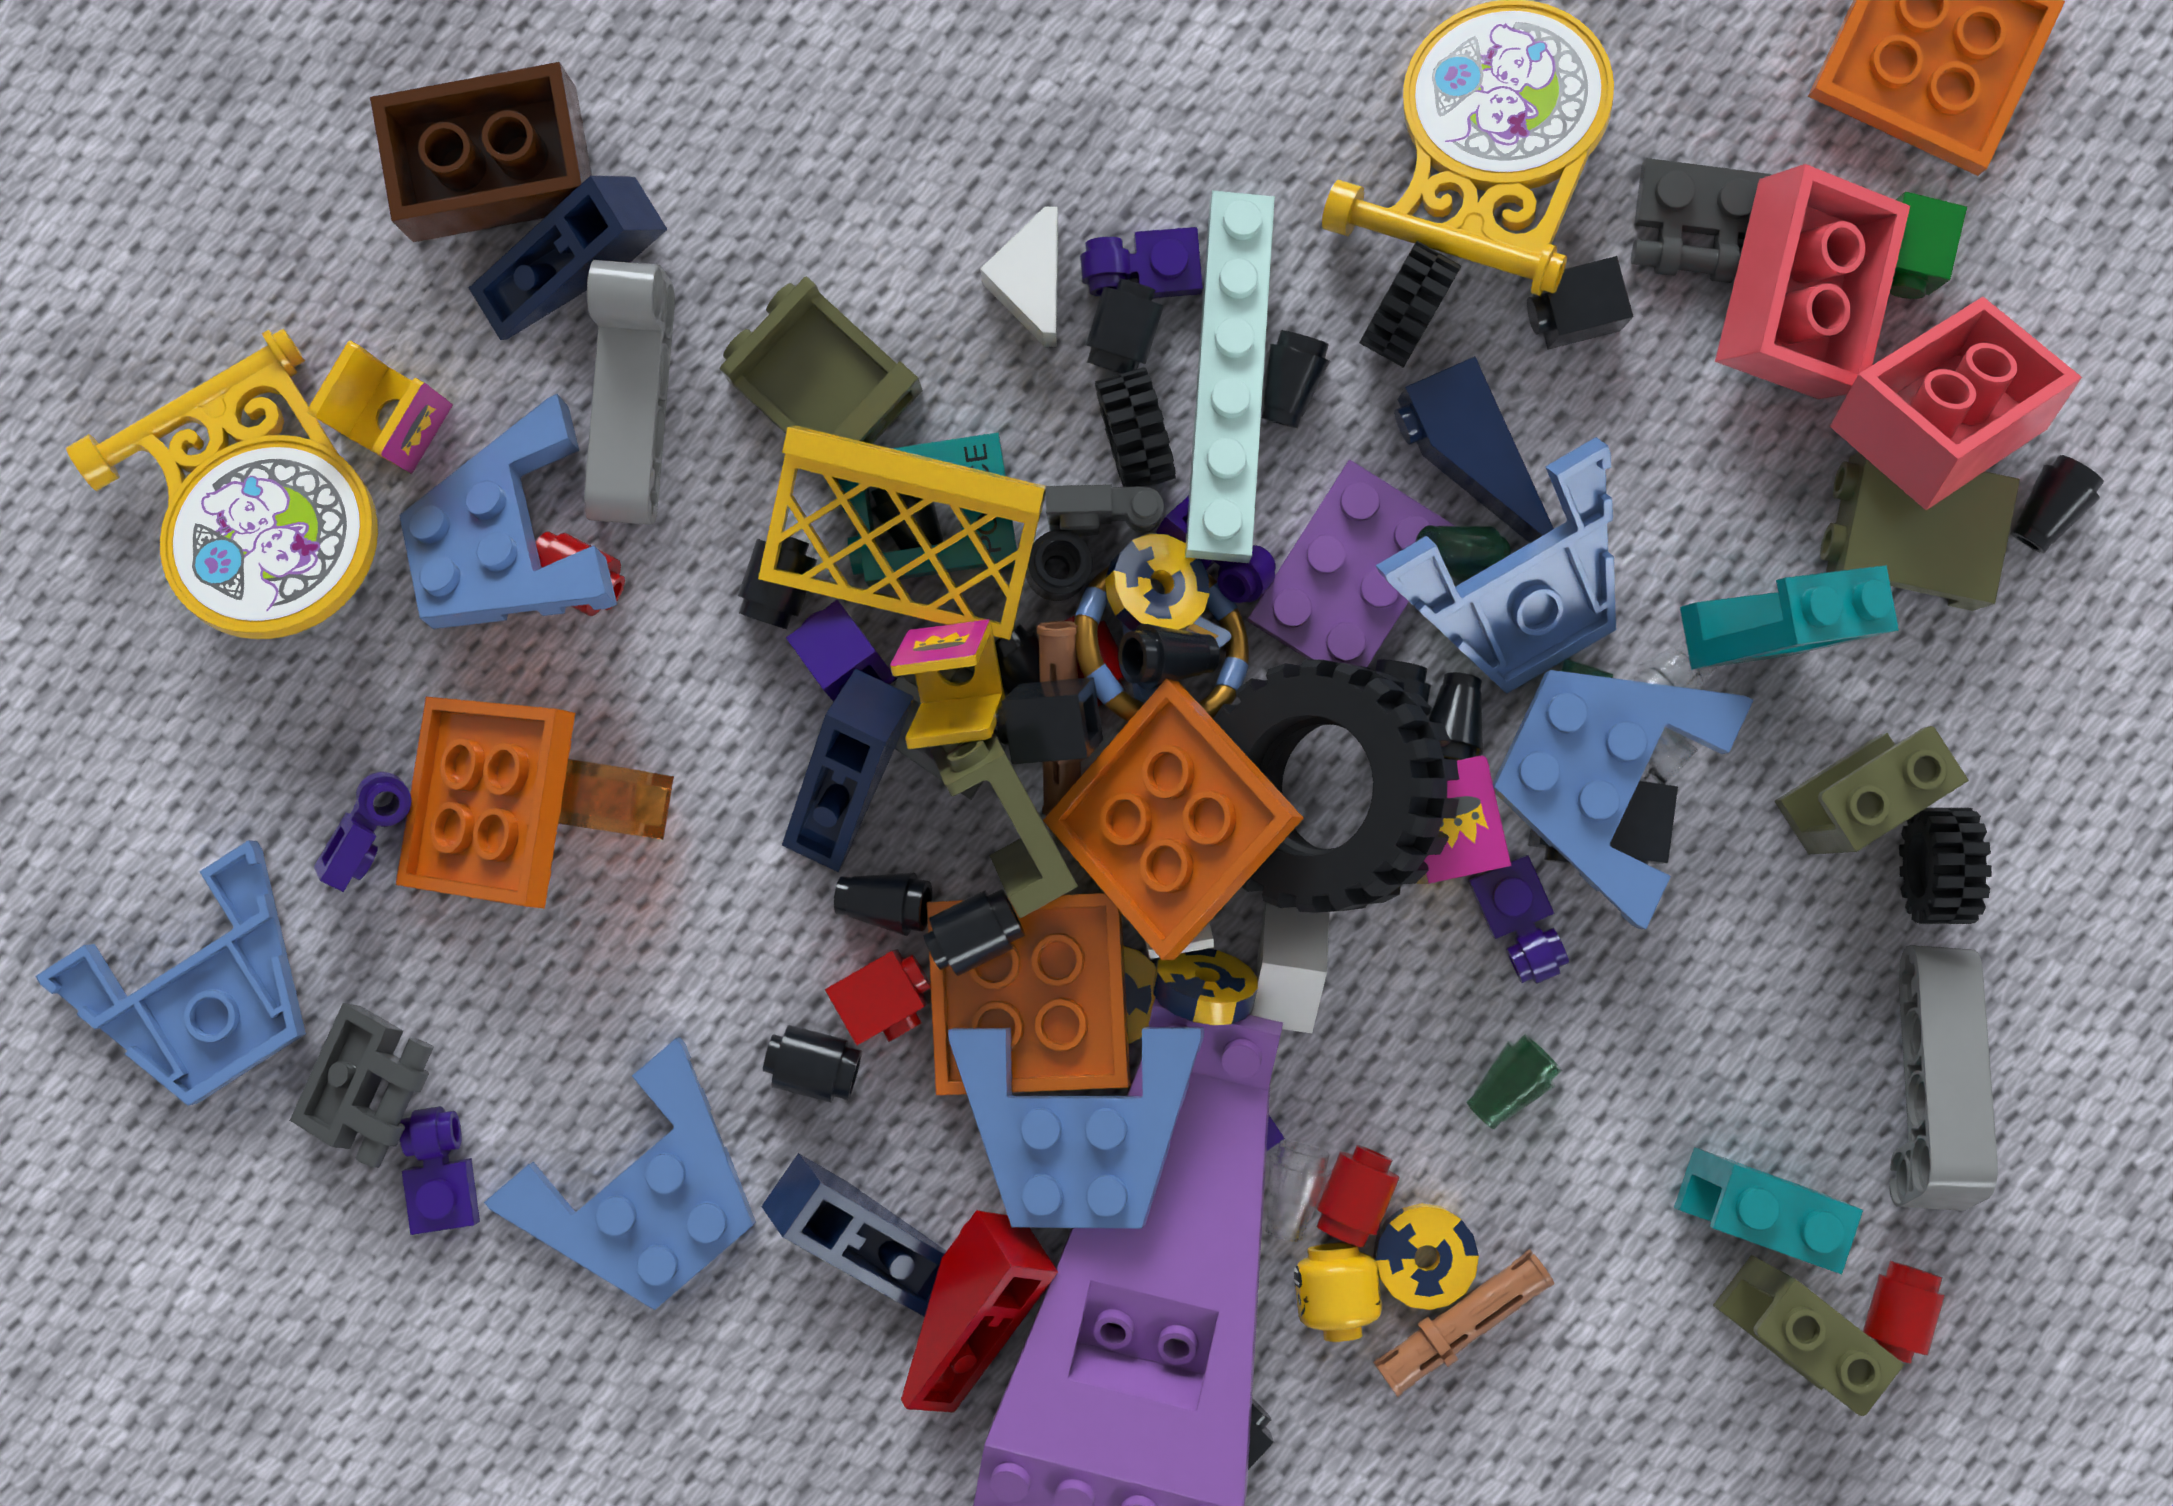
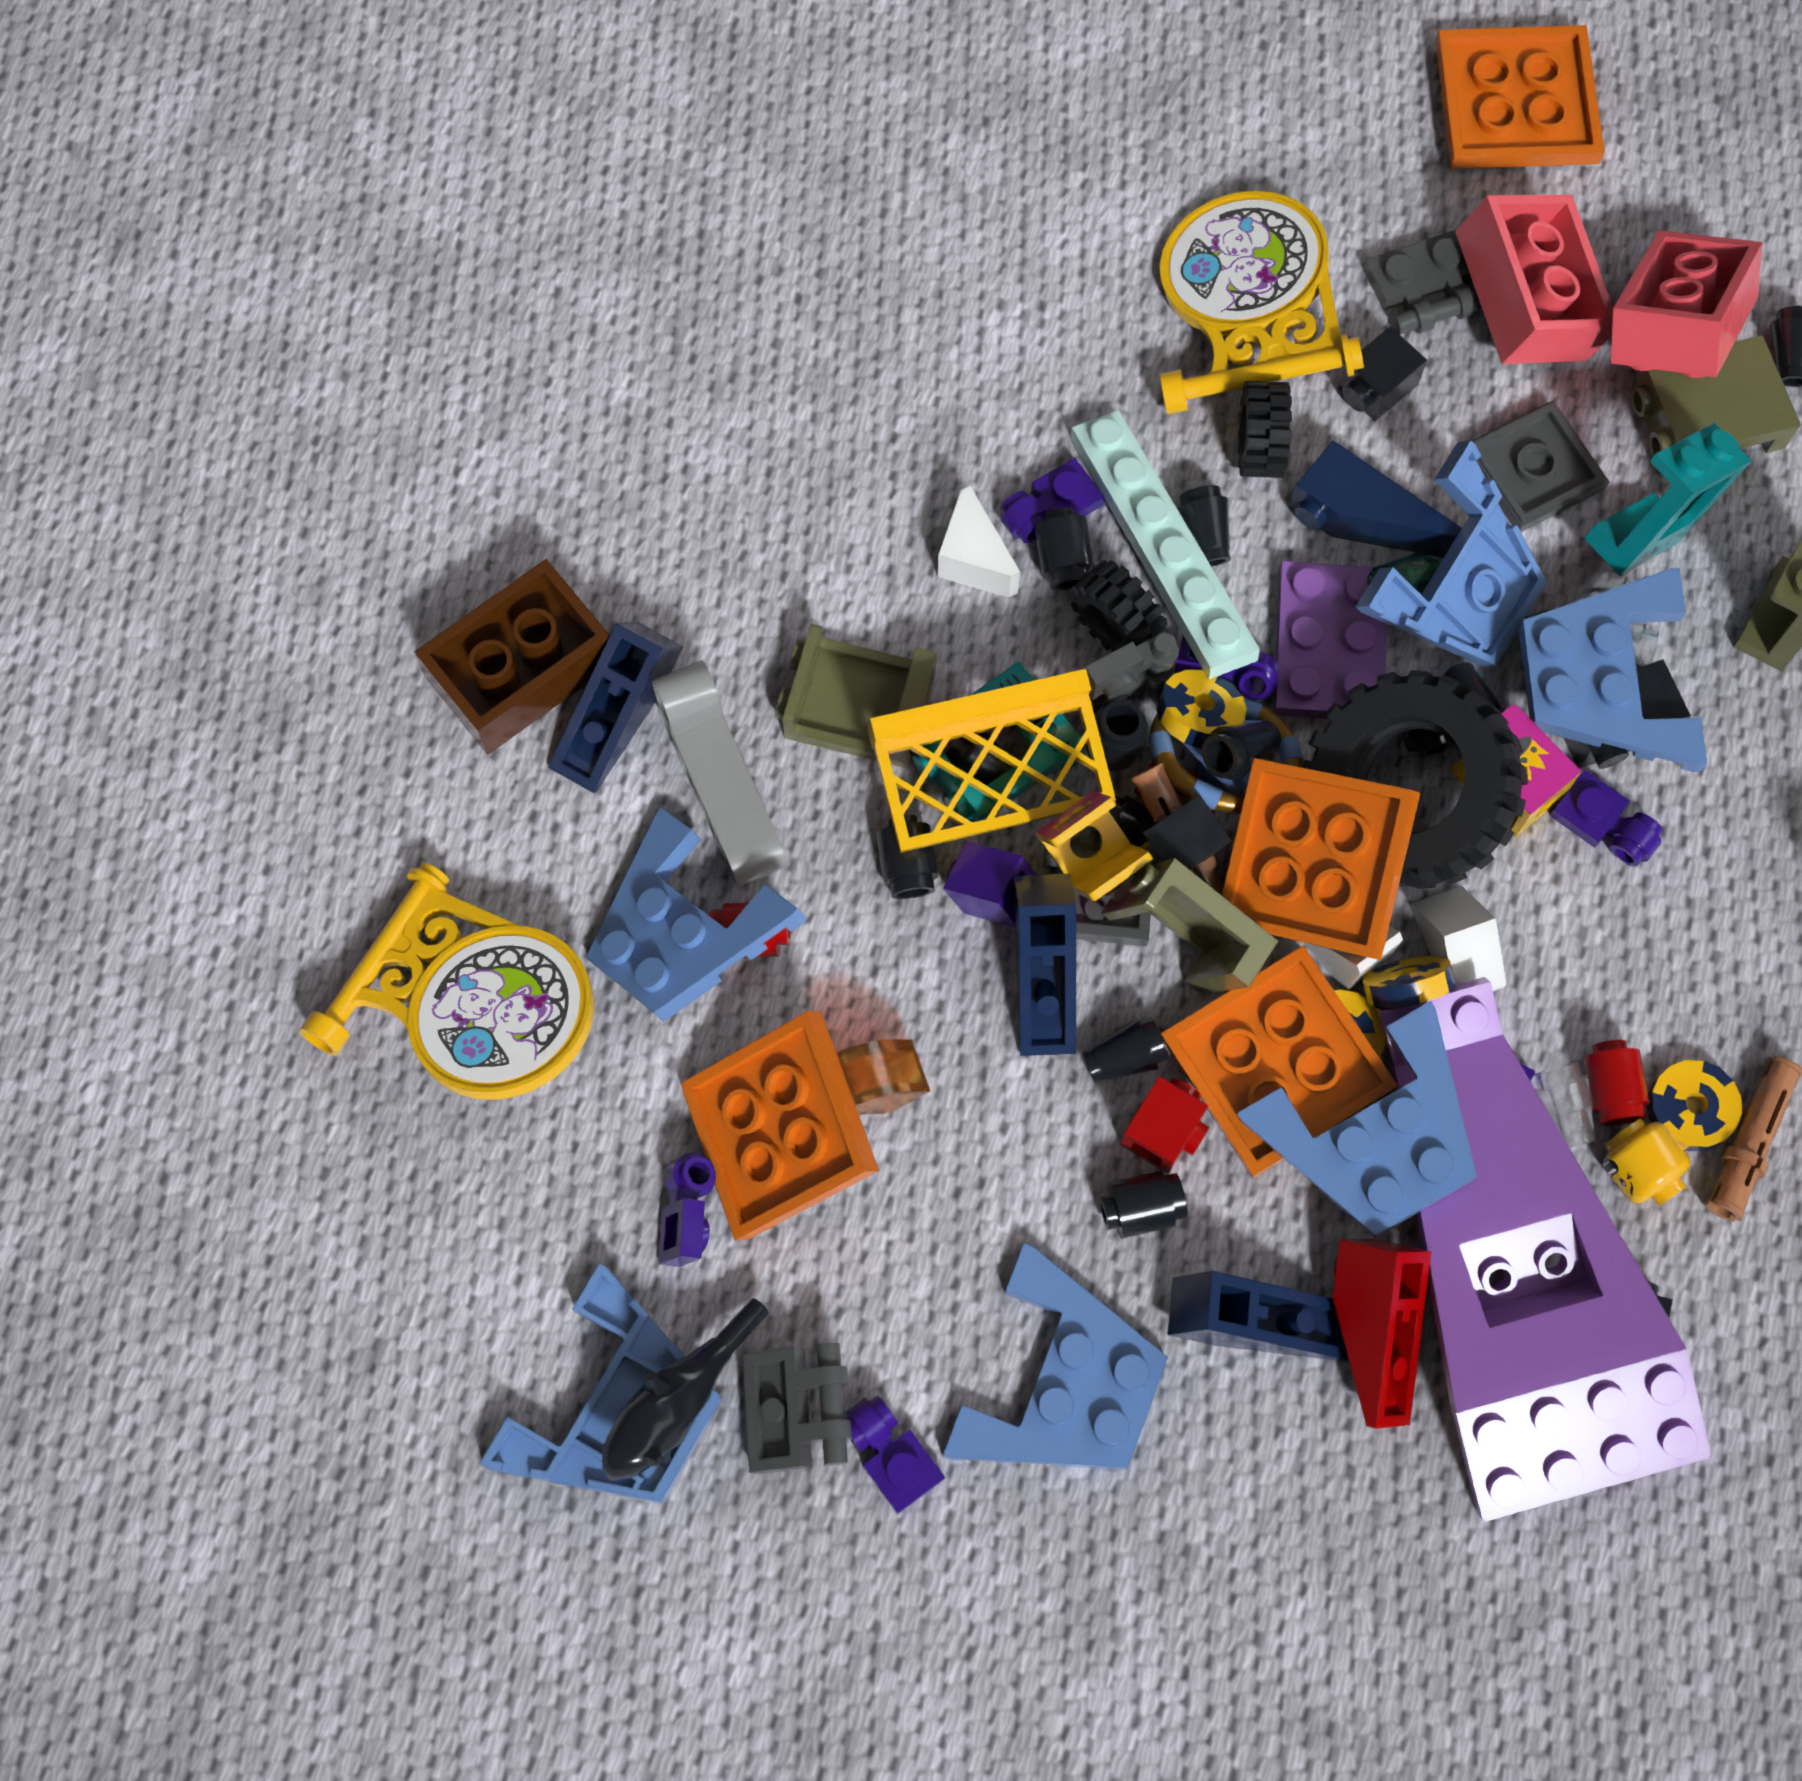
camera: 30 degrees left, 15 degrees down
(235, 1020) = (671, 1400): none -> black piece
(359, 390) = (513, 873): yellow piece -> none
(973, 932) = (1214, 1027): black brick -> none
(1514, 1081) = (1678, 937): clear green cone -> none
(1687, 492) = (1538, 466): none -> dark grey tile
(1927, 245) = (1600, 218): green brick -> none

